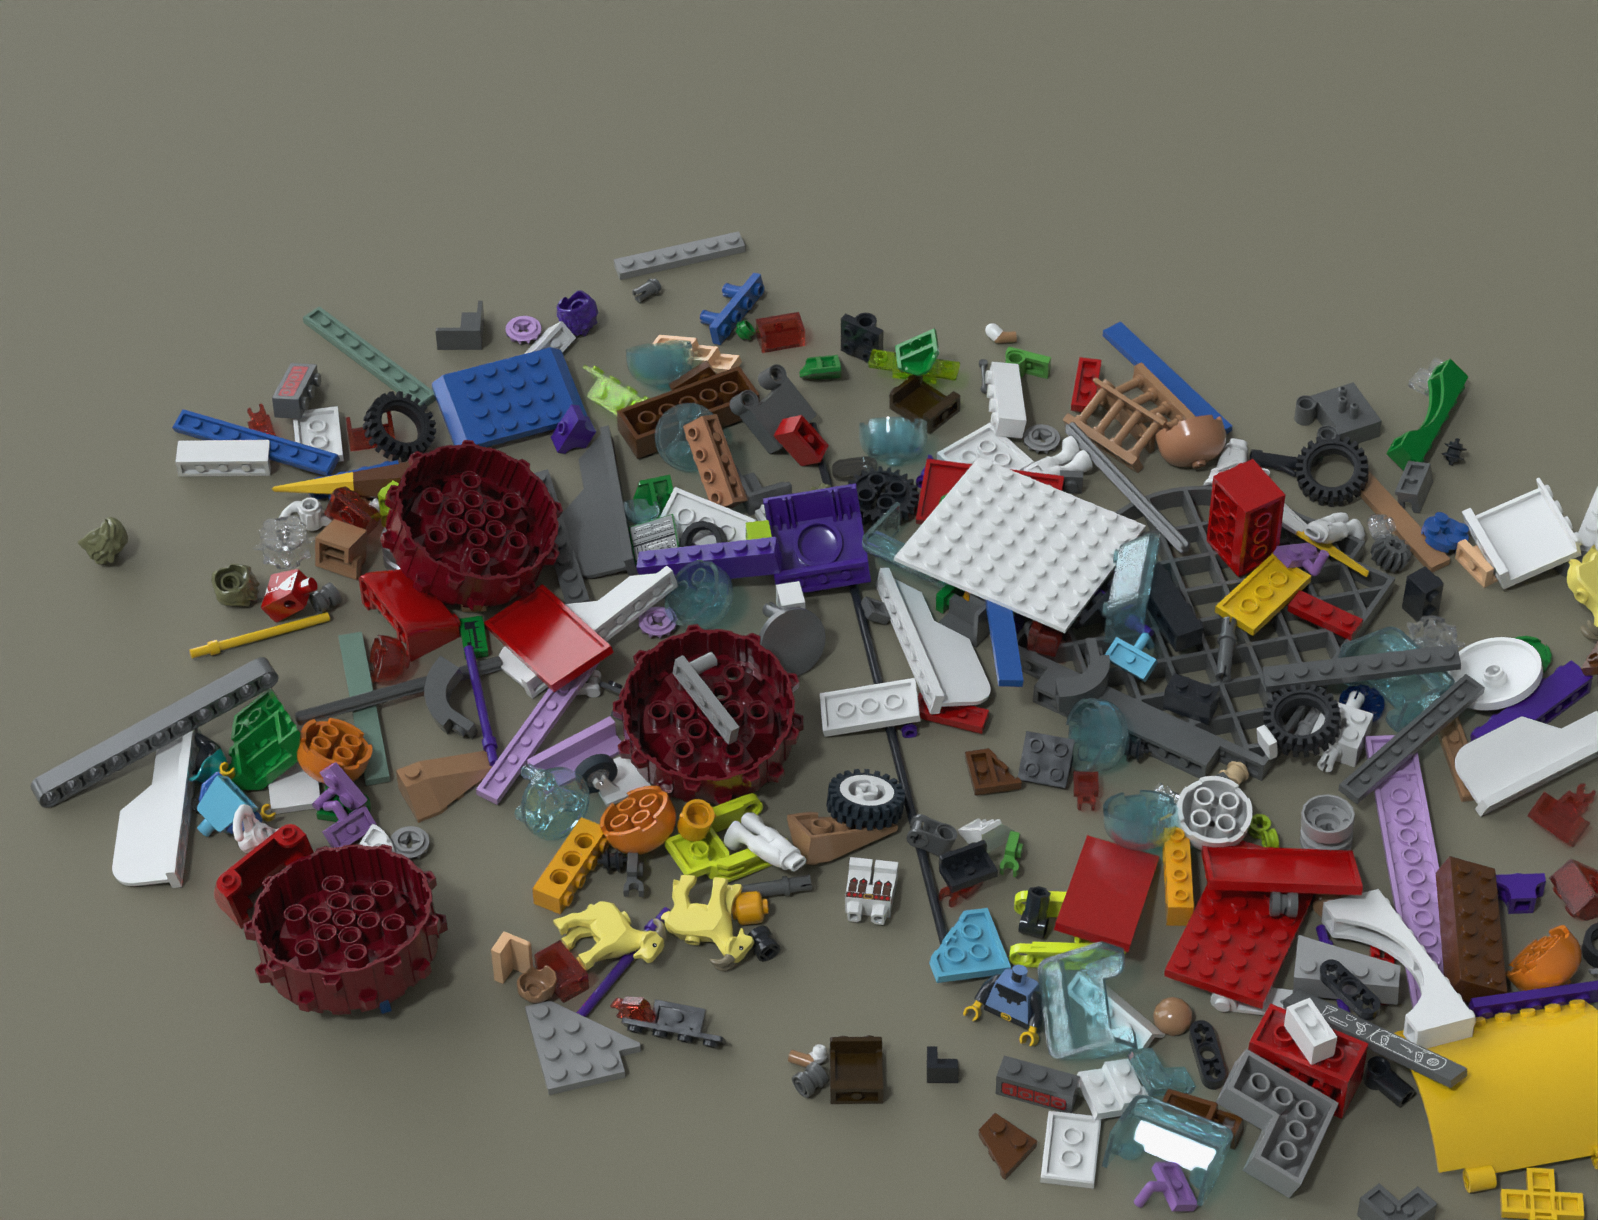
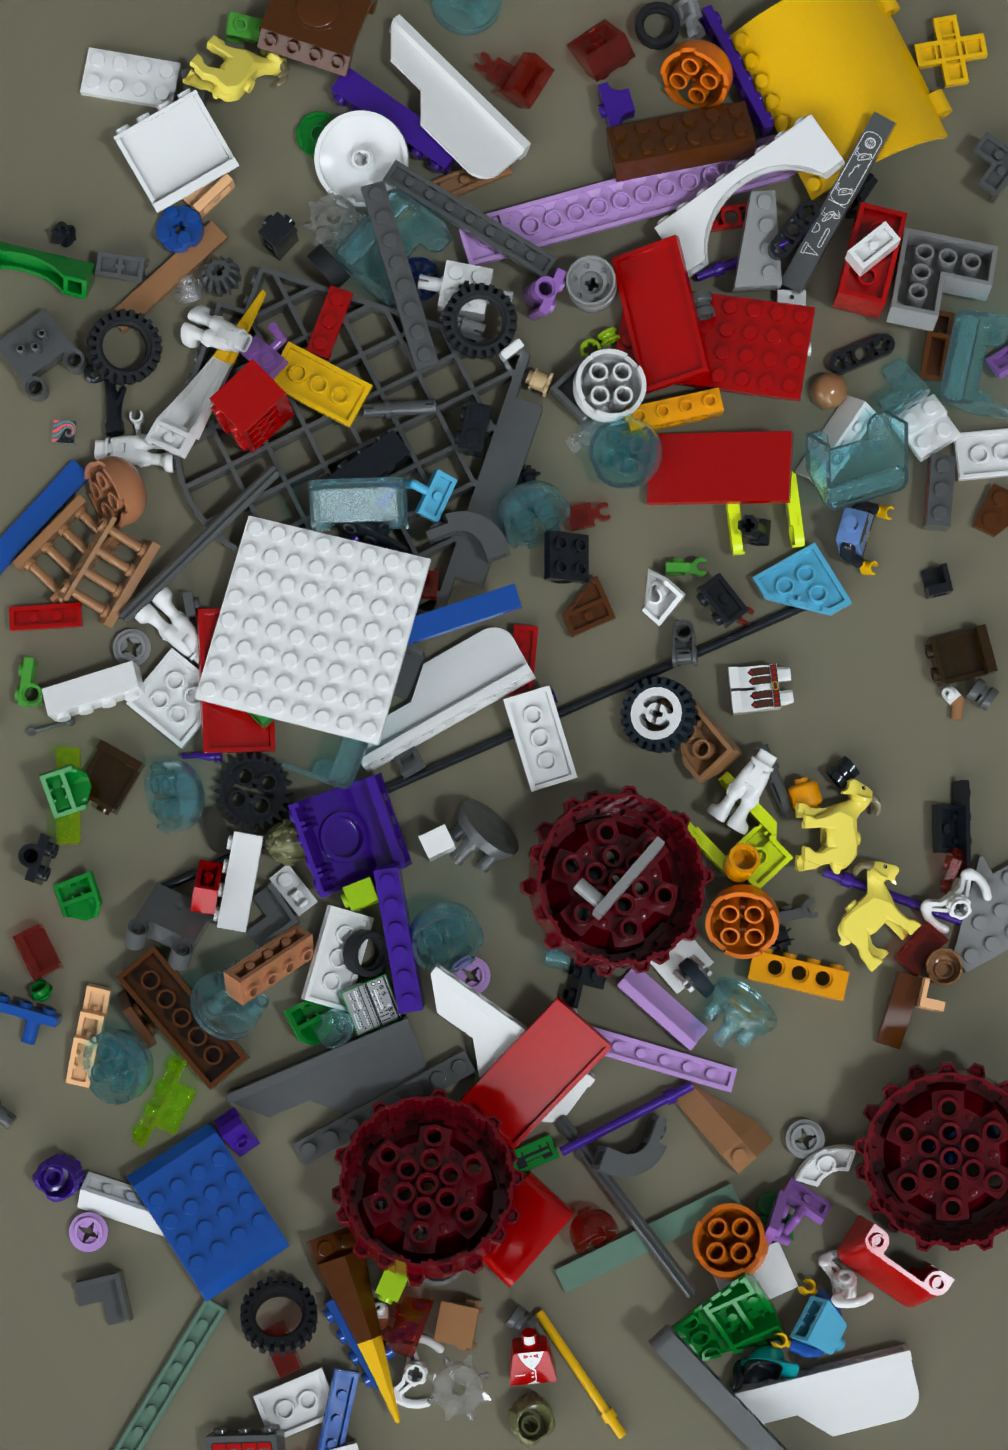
camera: 100 degrees left, 35 degrees up
(490, 931) = (899, 1009): none -> reddish brown slope
(598, 1002) = (955, 901): none -> white piece
(798, 468) = (239, 882): none -> white brick
(1260, 426) = (64, 432): none -> tile
(1320, 780) = (543, 302): none -> medium lavender plate
(1382, 615) = (328, 266): none -> black tyre

